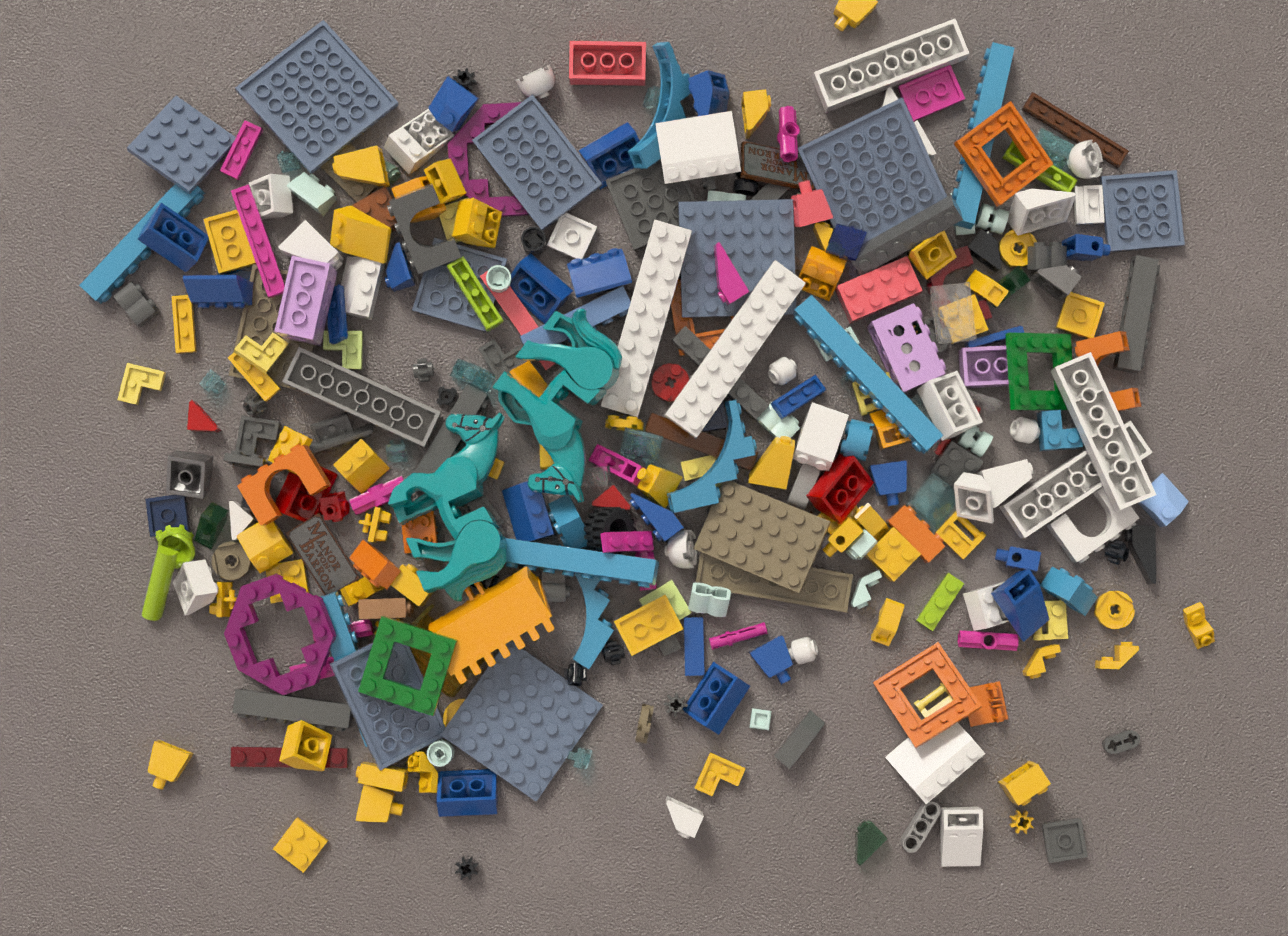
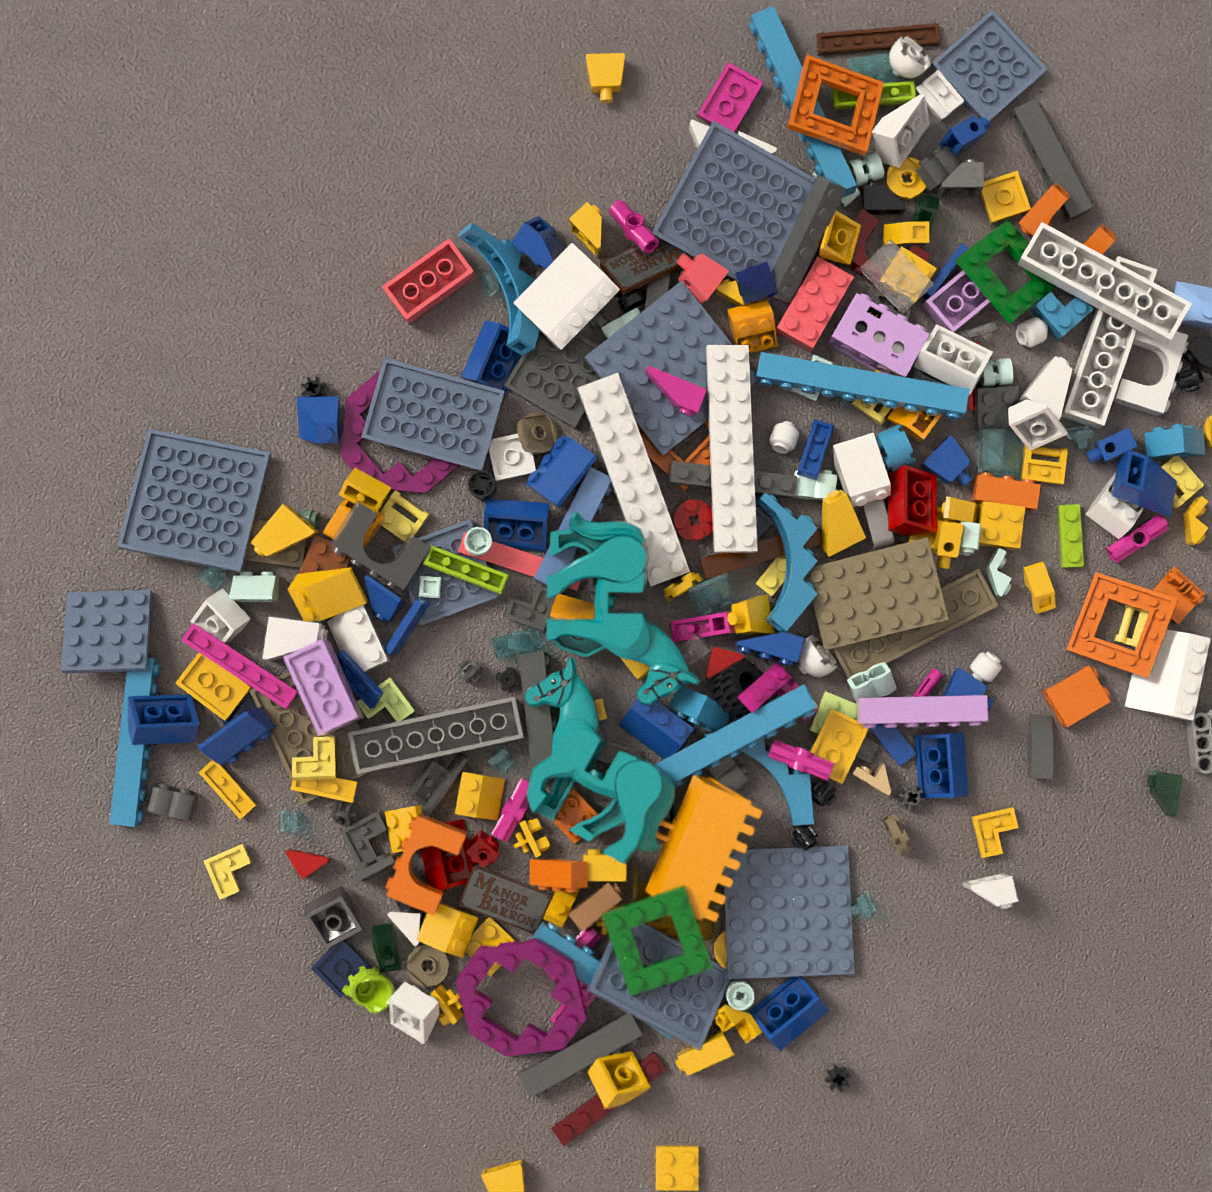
camera: 30 degrees left, 0 degrees up
(159, 583) = (380, 1033): lime brick -> none
(241, 150) = (162, 597): dark pink plate -> none
(377, 805) = (718, 1082): yellow torso -> none
(401, 303) = (407, 626): none -> blue tile
(417, 141) = (313, 473): white slope -> none
(440, 287) = (430, 587): none -> light aqua tile
(476, 223) = (420, 507): yellow slope -> none
(537, 82) = (379, 344): white cylinder -> none
(594, 227) = (527, 436): none -> dark tan plate
(614, 615) = (801, 759): none -> dark pink piece
(661, 675) = (878, 780): none -> tan slope
(731, 645) = (922, 709): none -> lavender brick
(760, 719) = (993, 755): light aqua tile -> none
(854, 722) = (1076, 696): none -> orange panel
(890, 65) = (677, 101): white brick -> none
(1002, 532) = (1080, 435): none -> clear light blue tile

